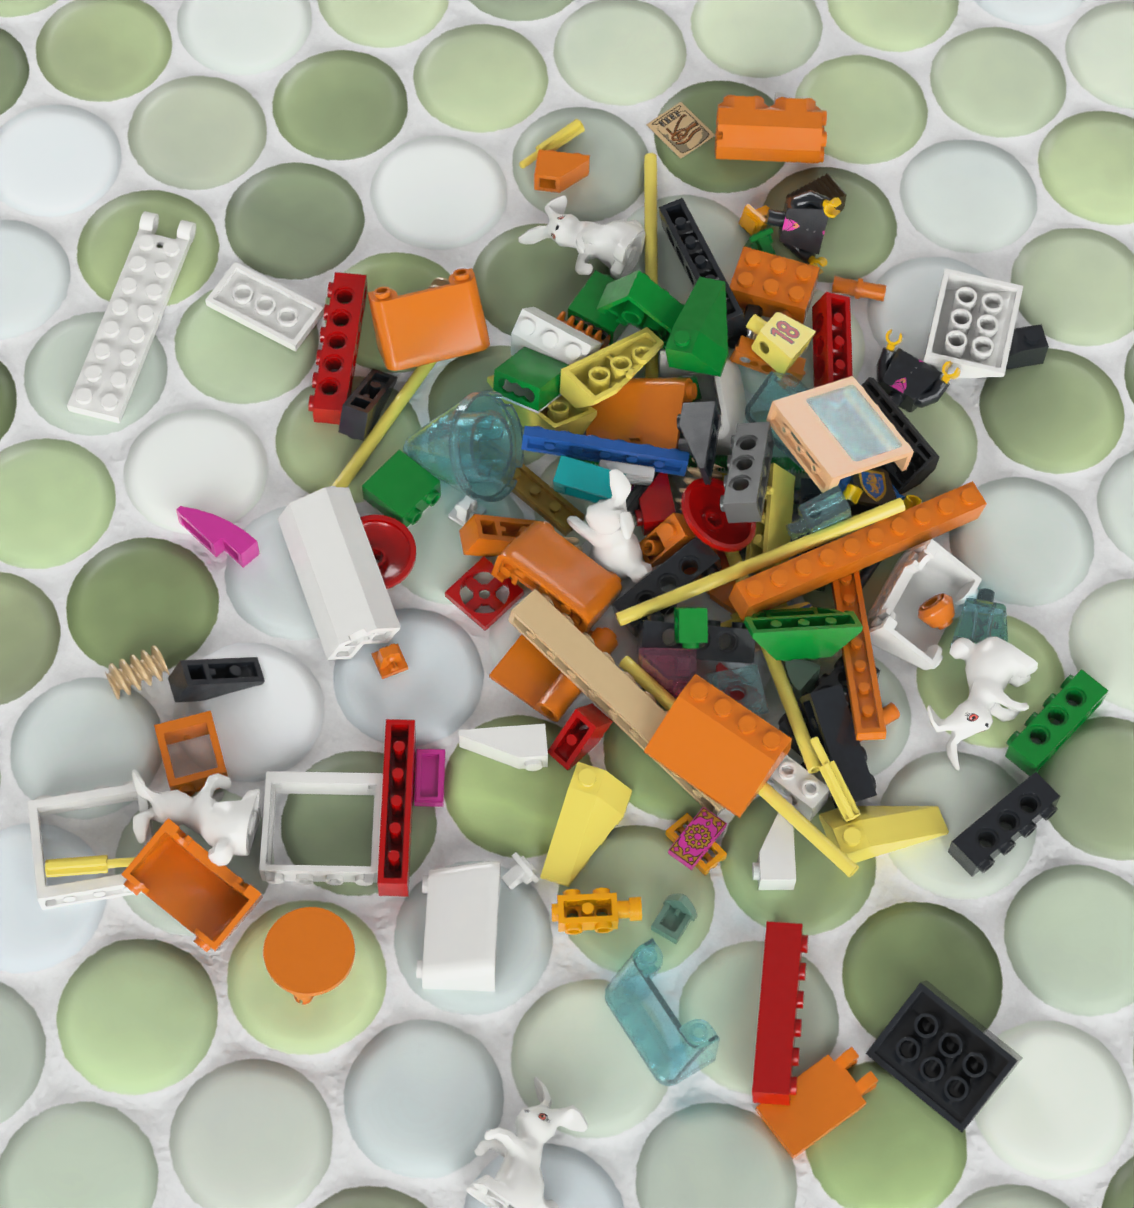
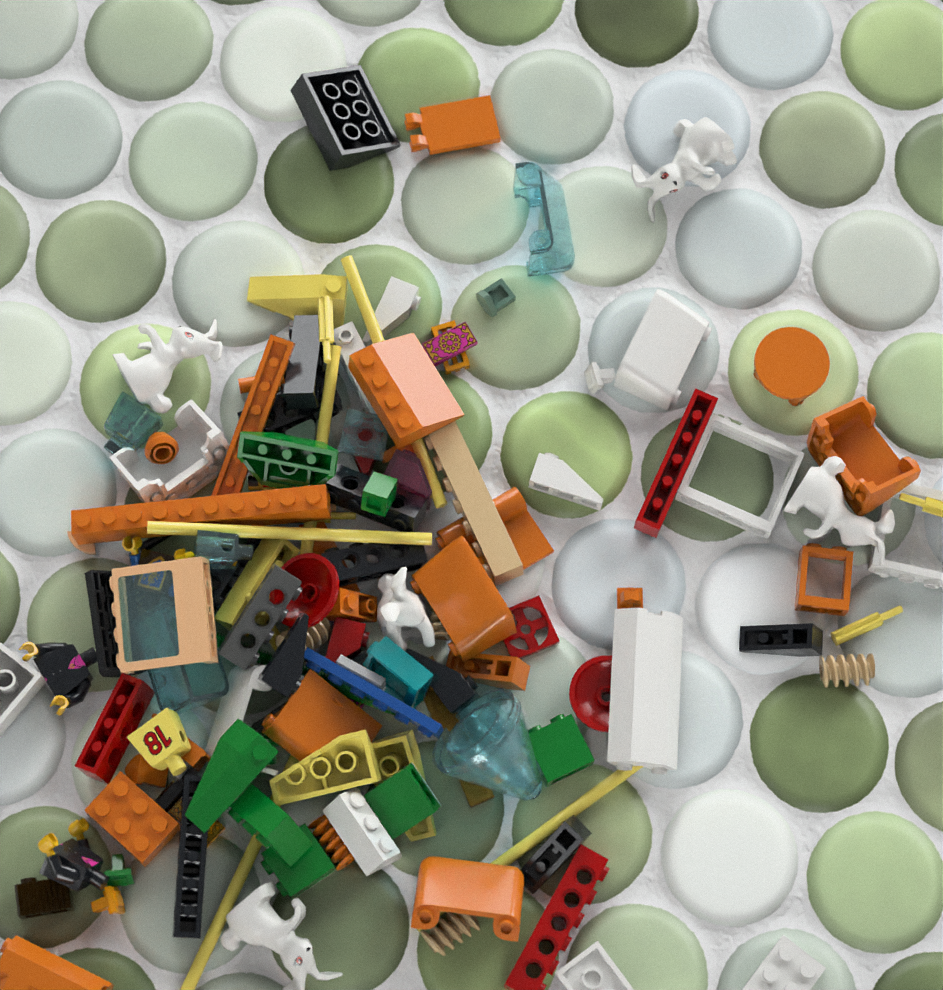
camera: 160 degrees left, 10 degrees up
(134, 729) = (863, 625): none -> light yellow axle
(219, 535) = (733, 774): dark pink slope -> none
(429, 777) = (636, 487): dark pink tile -> none
(540, 501) = (449, 685): none -> black slope
(579, 735) = (503, 466): red slope -> none
(588, 815) = (528, 400): light yellow wedge -> none
(588, 906) = (561, 318): light orange brick -> none
(778, 1014) = (452, 190): red brick -> none
(859, 288) = (54, 788): orange pin -> none
(1032, 756) = (104, 317): green brick -> none
(1032, 792) = (198, 270): black brick -> none

